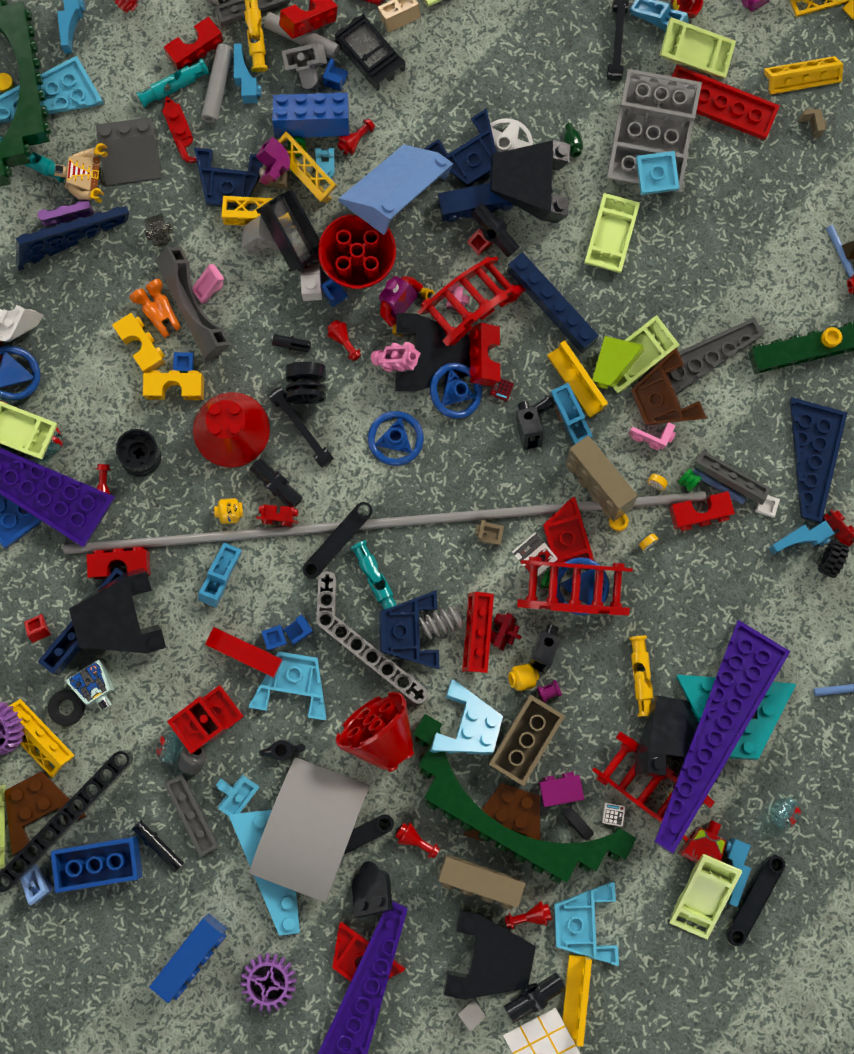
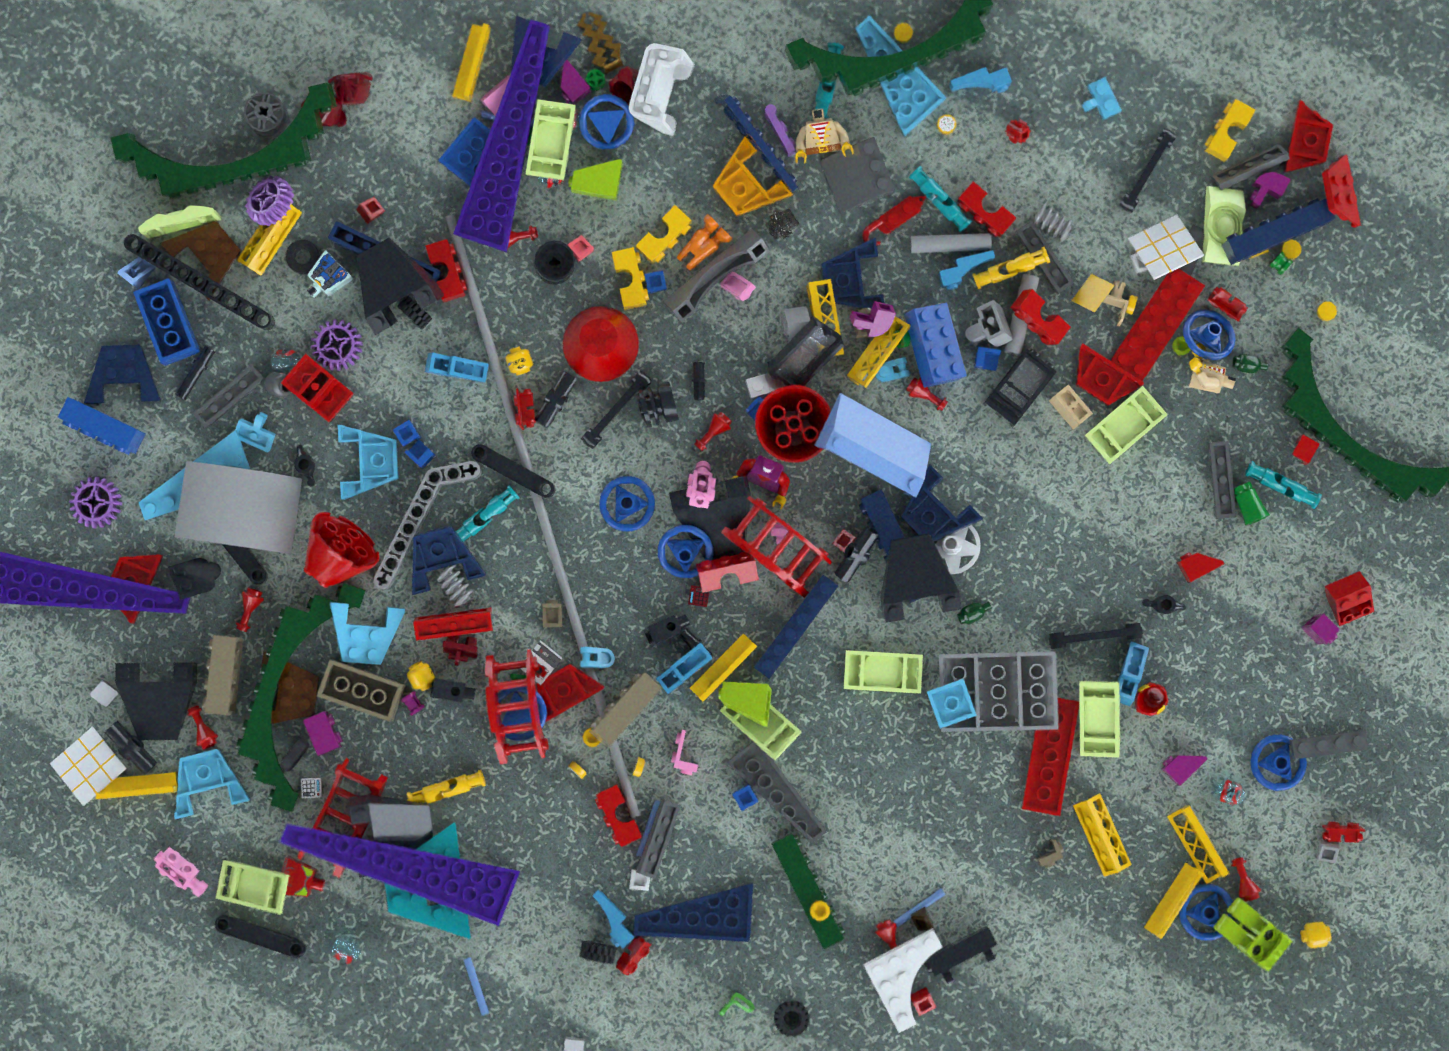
camera: 80 degrees right, 5 degrees up
(68, 395) = (597, 180): none -> lime slope
(102, 63) = (946, 124): none -> tile
(113, 262) = (741, 189): none -> light orange wing
(130, 423) = (581, 248): none -> coral plate
(131, 923) = (121, 366): none -> dark blue wing
(152, 603) = (414, 312): none -> black tyre
(163, 682) = (343, 360): none -> medium lavender gear
(244, 652) = (387, 407): red slope -> none
(544, 493) = (602, 657): none -> medium azure plate
(658, 399) = (721, 750): reddish brown wing -> none
(670, 970) = (180, 869): none -> bright pink brick
(689, 480) = (646, 798): green wheel -> none
(707, 385) = (745, 797): none -> blue panel
(736, 852) = (299, 909): dark azure slope -> none

